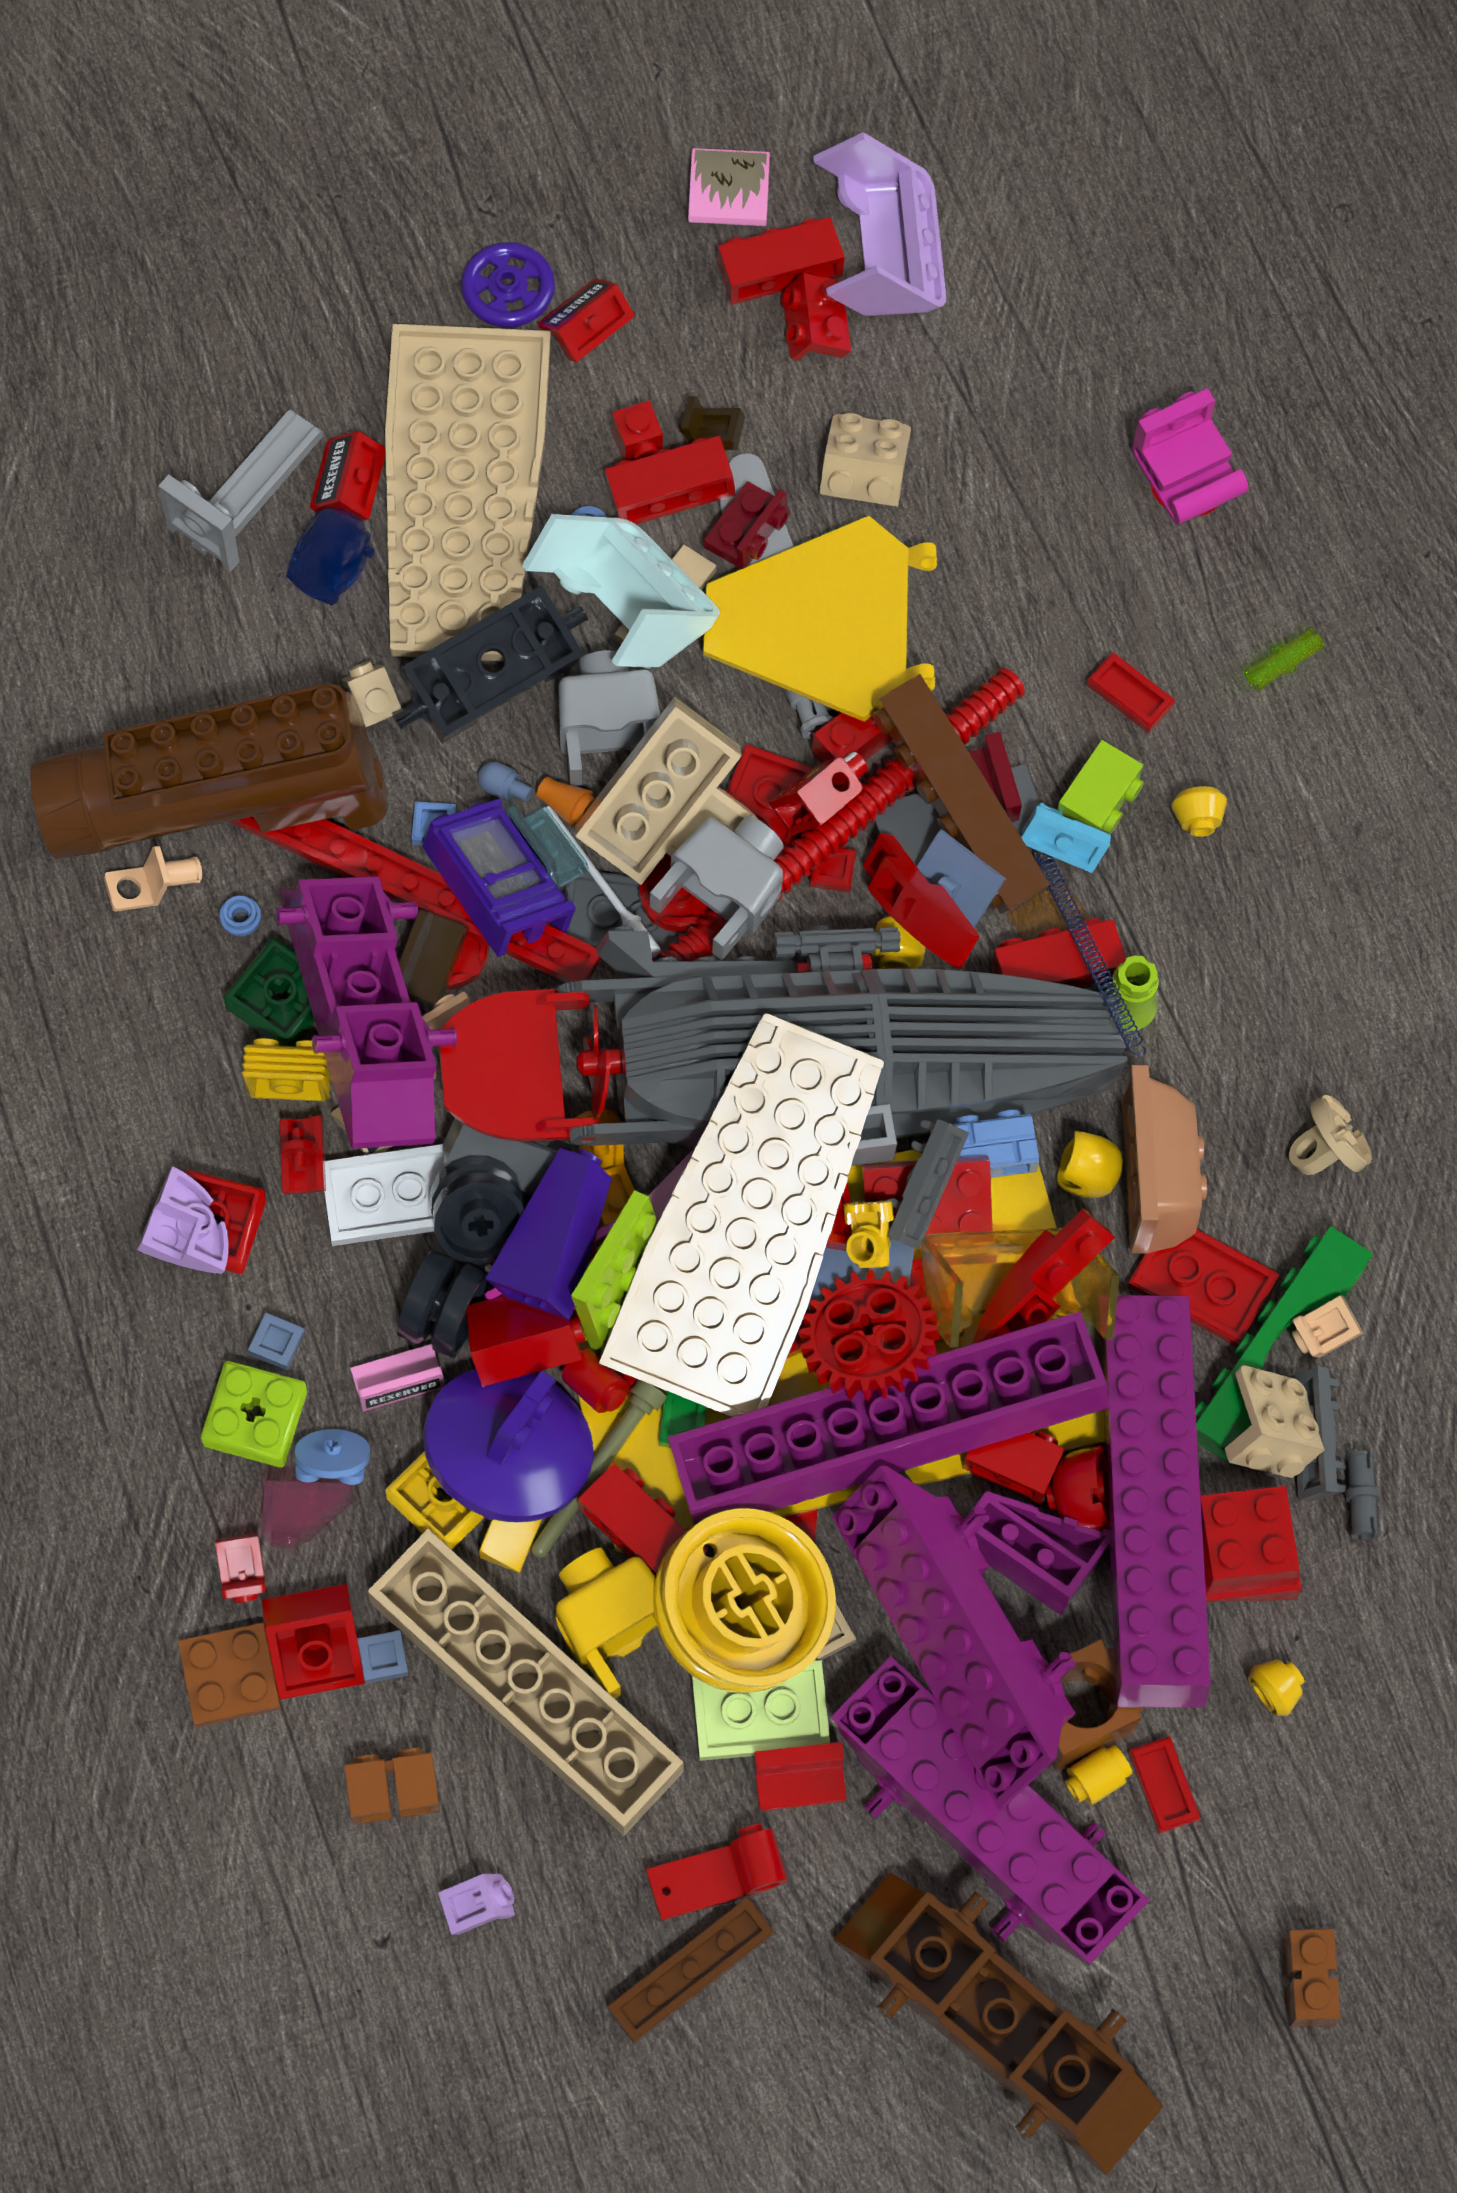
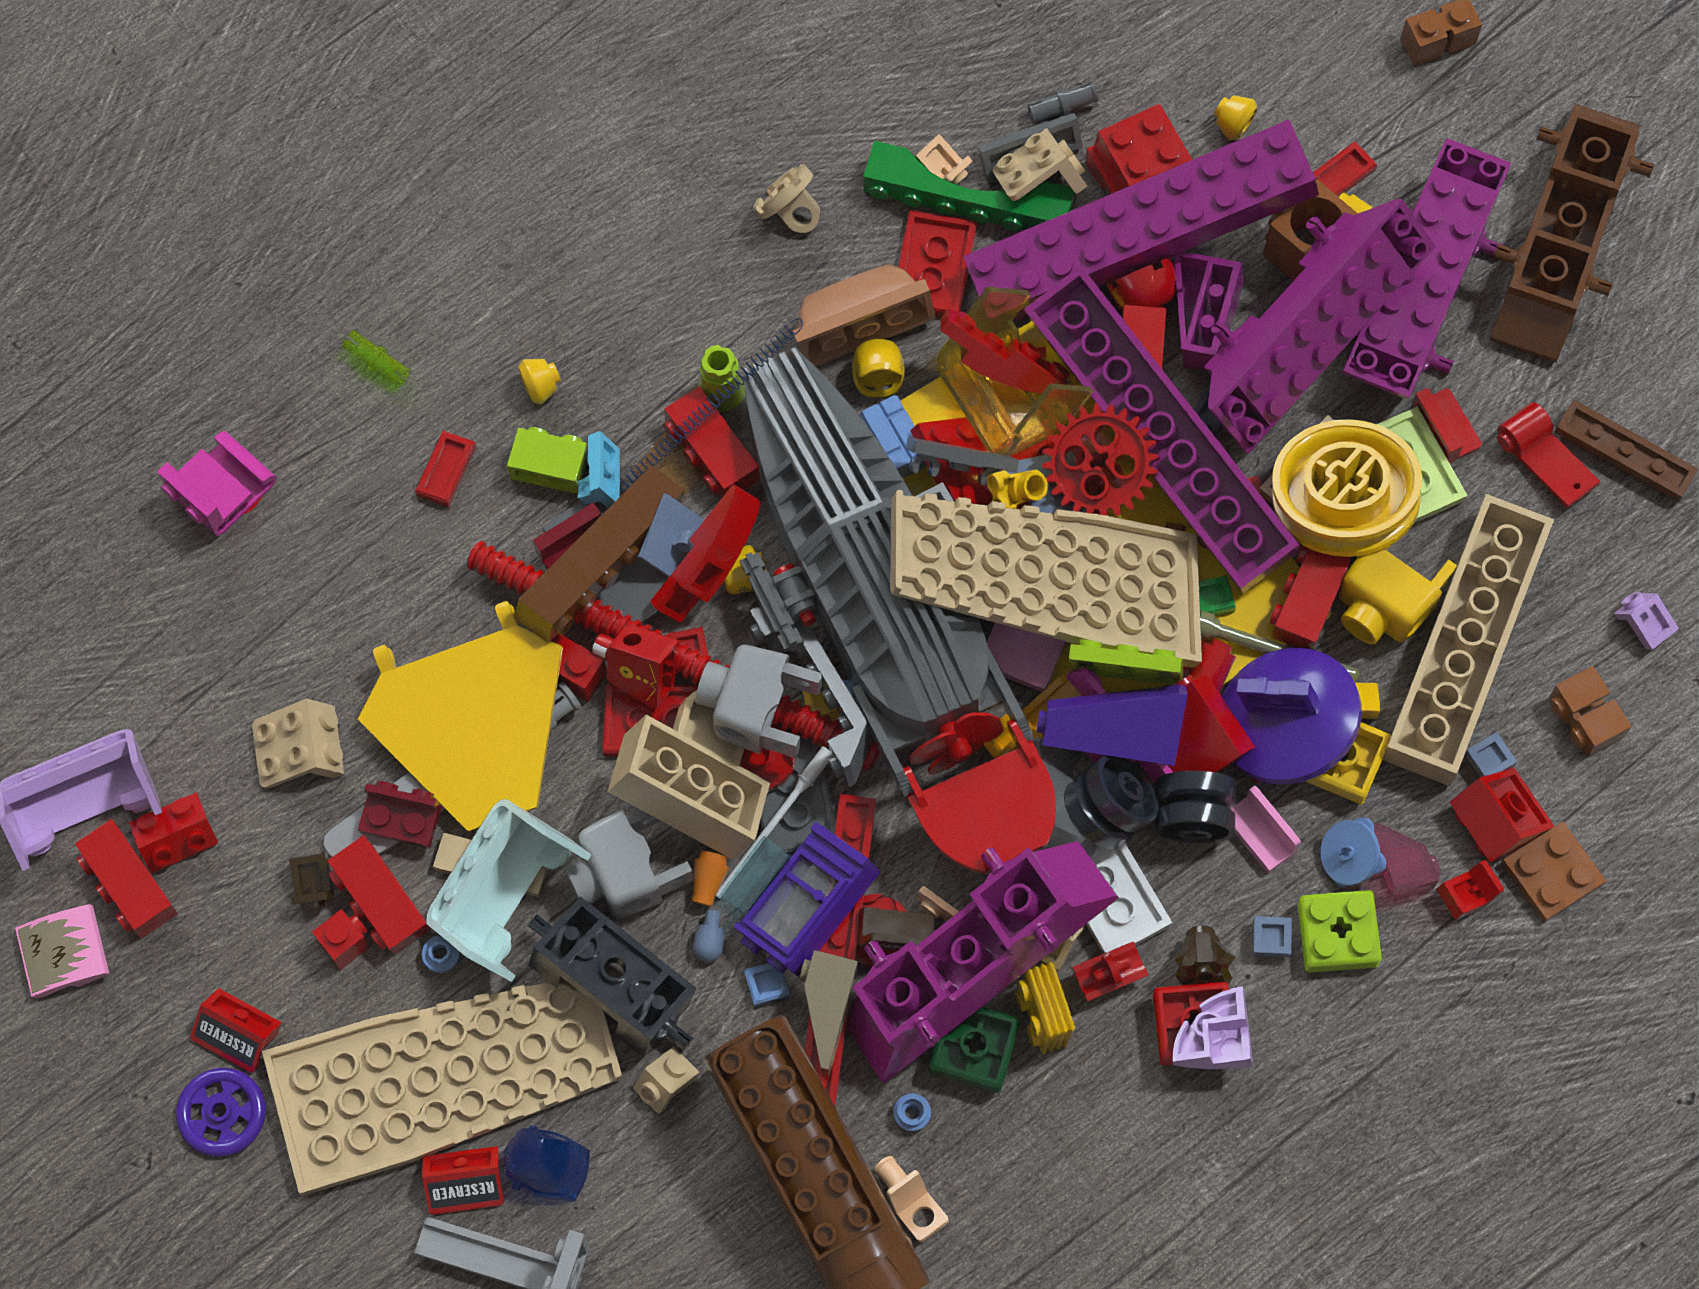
camera: 105 degrees left, 0 degrees up
(280, 1256) = (1203, 958): none -> dark brown rock
(373, 852) = (828, 995): none -> dark tan slope

